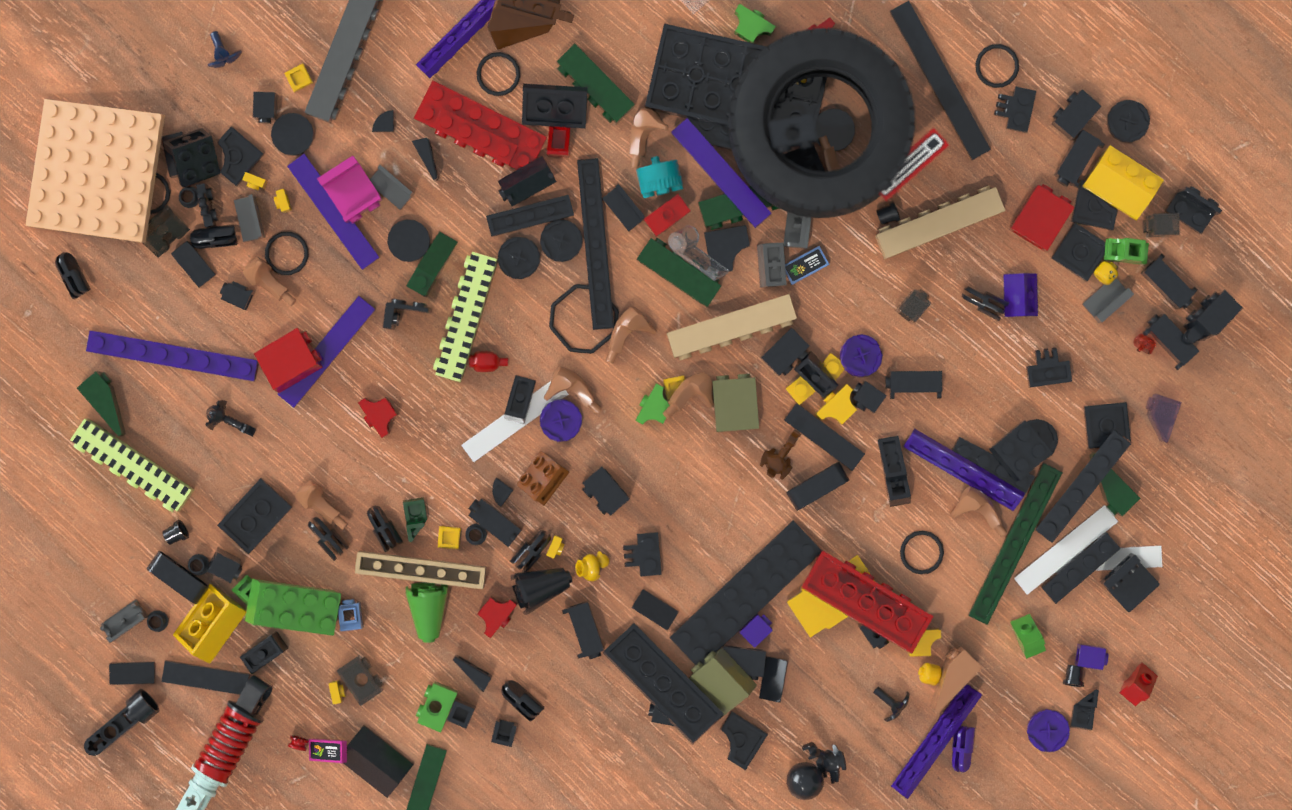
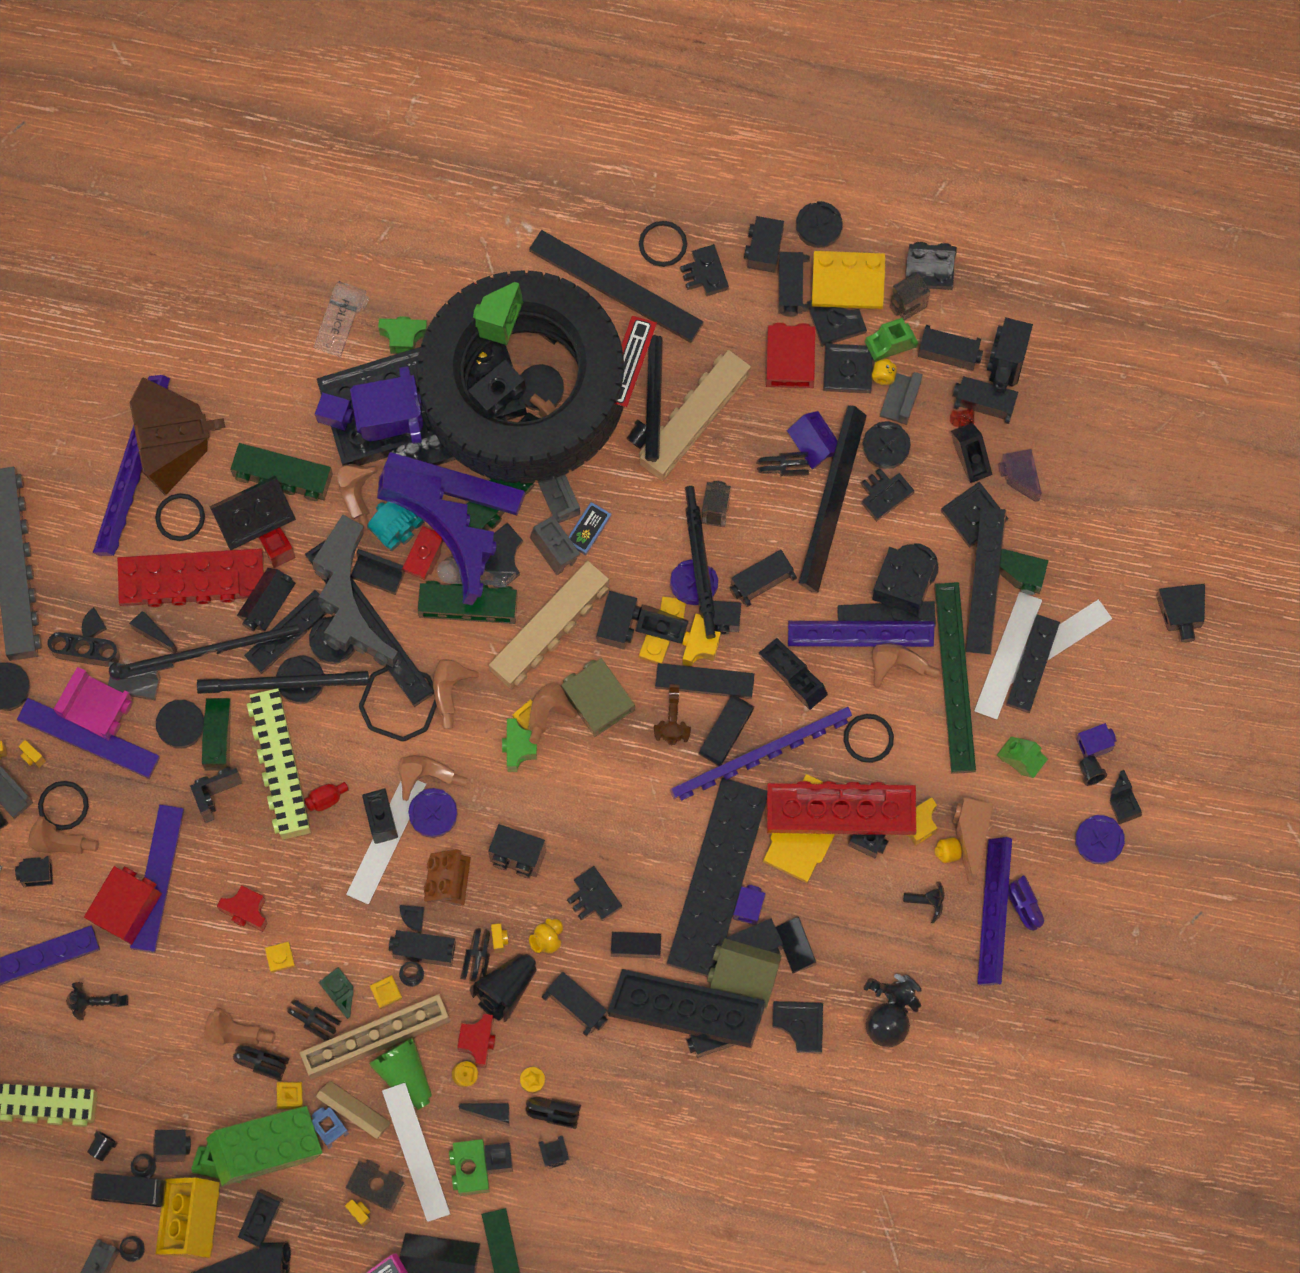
camera: 30 degrees left, 15 degrees down
(254, 516) = (174, 1082): black plate -> none
(334, 574) = (289, 1095): none -> yellow tile
(357, 135) = (74, 642): none -> black beam
(375, 613) = (353, 1110): none -> tan tile
(385, 465) = (279, 957): none -> yellow plate
(403, 672) = (416, 1152): none -> white sticker
(422, 190) = (166, 661): none -> black bar
(472, 634) = (464, 1074): none -> yellow tile
(520, 666) = (532, 1080): none -> yellow tile
(553, 280) = (217, 685): none -> black piece
(577, 241) = (348, 625): none -> dark grey arch
(662, 61) = (334, 411): none -> dark purple brick
(700, 204) = (424, 497): none -> dark purple arch
(704, 85) = (388, 408): none -> dark purple piece
(824, 519) = (752, 758): none -> dark purple plate
(828, 72) = (499, 313): none -> bright green slope
(874, 344) = (700, 562): none -> black axle
(911, 199) = (654, 386): none -> black axle
(1006, 351) = (832, 499): none -> black tile
(1073, 331) = (886, 445): none -> black tile
(1130, 582) = (1089, 649): black bracket -> none
(1134, 376) = (971, 452): none -> black slope
(1139, 685) = (1160, 741): red brick -> none
(1220, 593) = (1183, 609): none -> black torso

